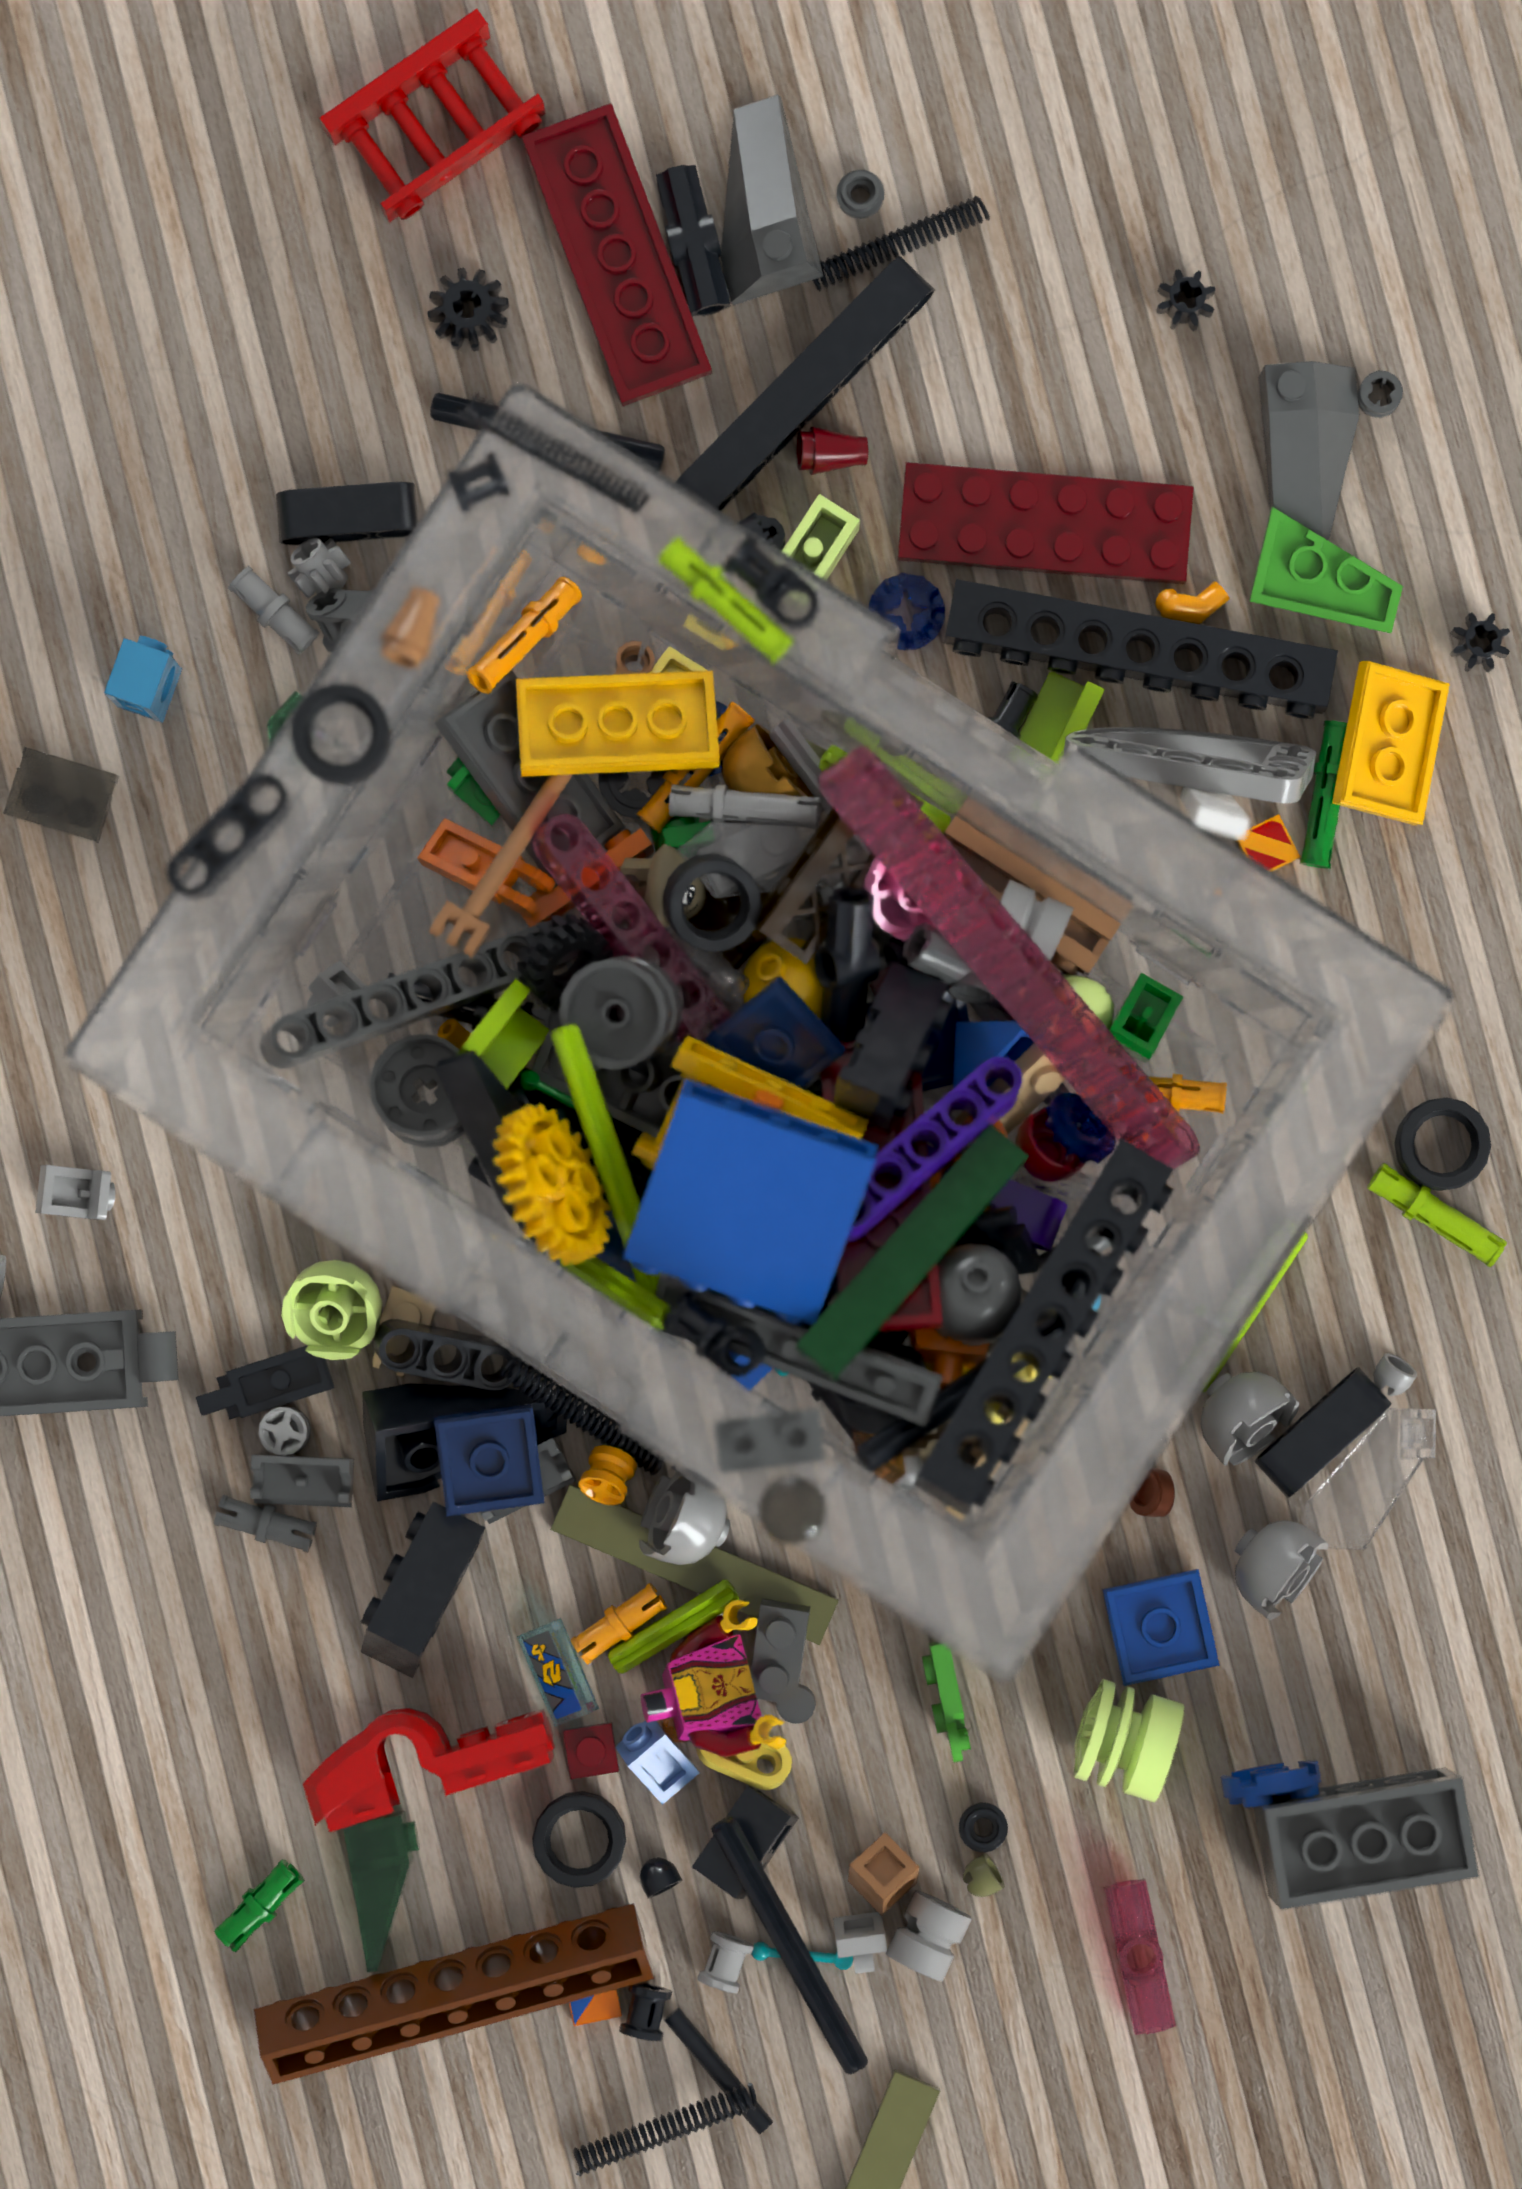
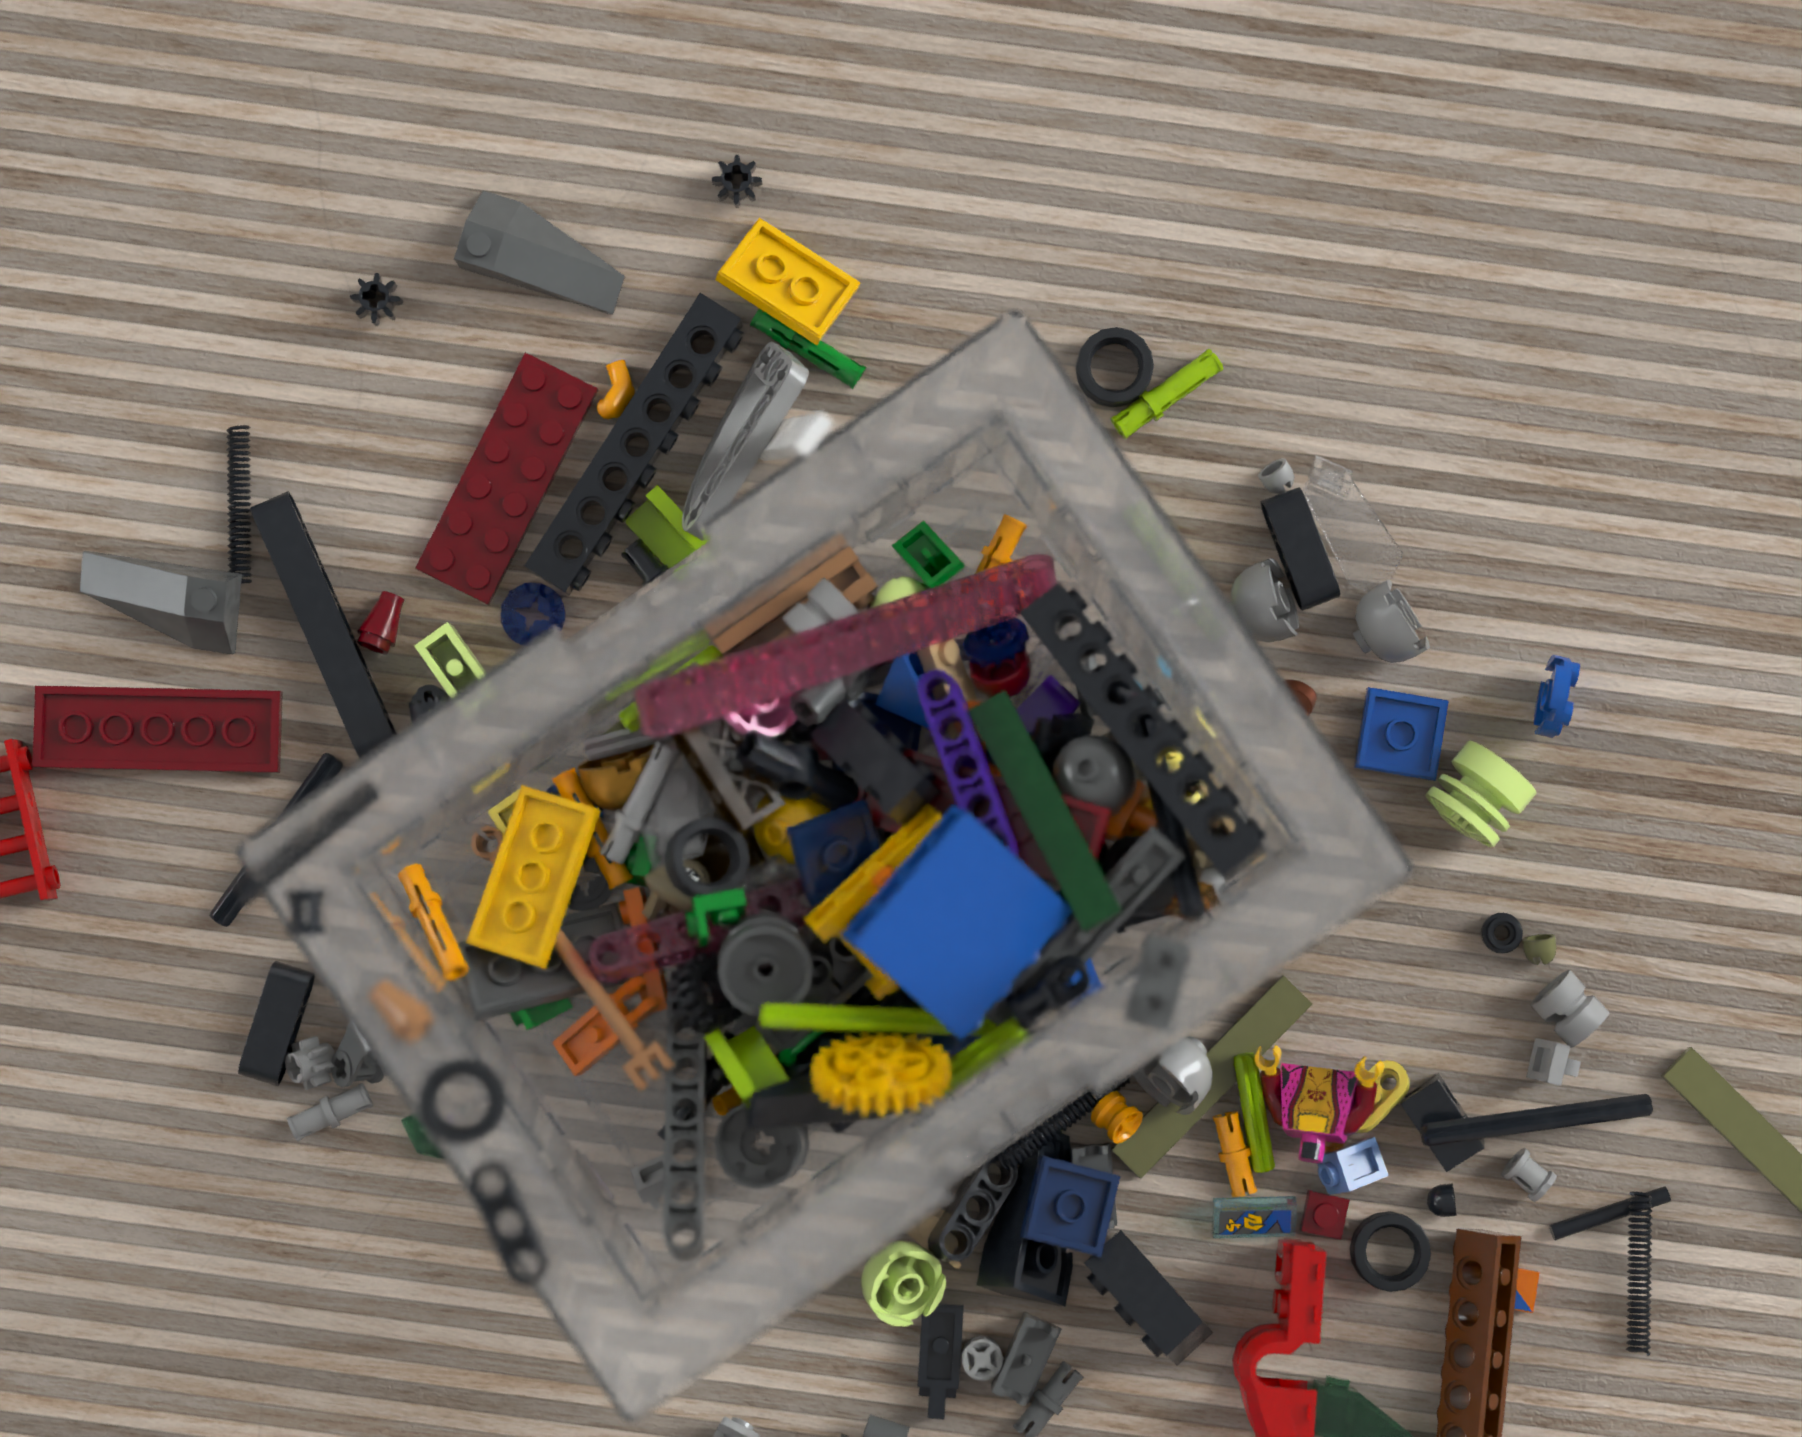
camera: 75 degrees left, 0 degrees up
(61, 795) = (408, 1338): clear smoke plate -> none
(143, 678) = (343, 1236): dark azure brick -> none
(484, 316) = (142, 873): black gear -> none
(645, 2011) = (1544, 1252): black bush -> none
(662, 935) = (719, 908): none -> green bracket
(693, 240) = (171, 664): black piece -> none
(725, 599) = (478, 753): lime pin -> none
(762, 1951) = (1530, 1142): teal hinge -> none
(773, 583) = (481, 708): black connector -> none
(780, 1659) = (1311, 1039): dark grey hinge -> none
(792, 1510) = (1219, 986): clear smoke head -> none
(864, 180) = (177, 513): dark grey plate -> none
(883, 1874) = (1509, 1025): medium nougat brick -> none
(949, 1712) = (1404, 924): bright green hinge -> none
(1147, 1986) = (1672, 854): clear pink piece -> none
(1269, 844) = (832, 403): light orange tile -> none
(1320, 579) = (638, 283): bright green wing -> none
(1367, 1838) = (1628, 640): dark grey brick -> none
(1393, 400) = (520, 171): dark grey bush -> none

